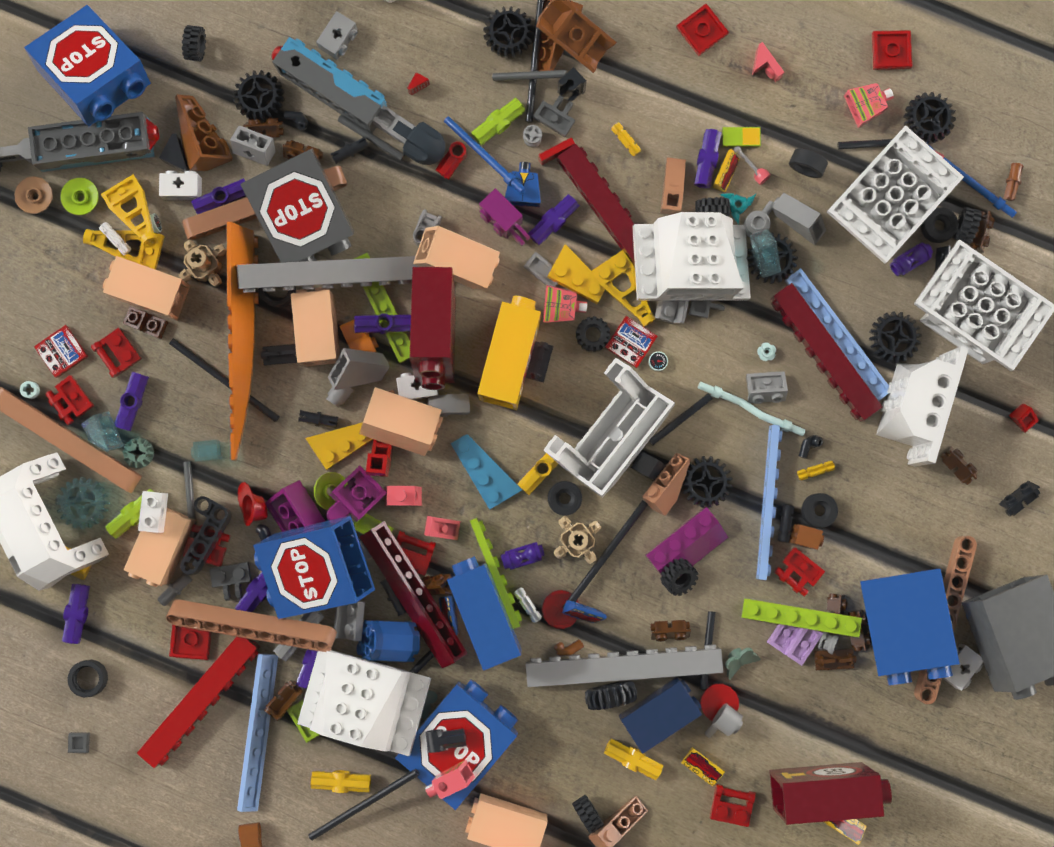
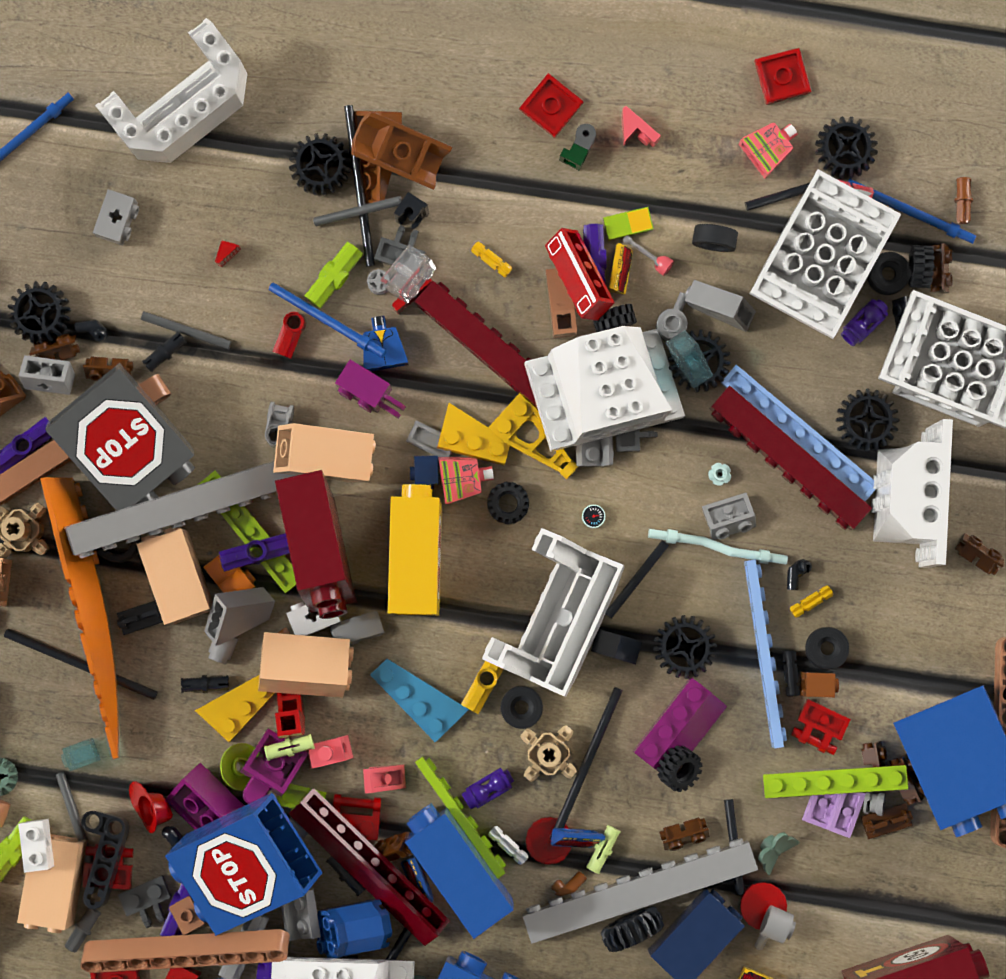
camera: 15 degrees left, 0 degrees up
(258, 598) = (186, 916): none -> nougat bracket
(355, 100) = (157, 292): piece -> none
(359, 483) = (272, 751): none -> yellowish green pin
(535, 291) = (425, 471): none -> dark blue brick
(539, 361) = (452, 551): black hinge -> none
(553, 219) = (428, 377): dark purple piece -> none
(557, 133) = (408, 274): none -> clear brick
(594, 635) = (596, 863): none -> yellowish green pin
(631, 342) = (556, 501): tile -> none
(667, 486) = (640, 662): nougat slope -> none
(693, 165) = (579, 274): none -> red brick
(717, 68) = (581, 147): none -> leg
(737, 198) = (644, 313): teal piece -> none

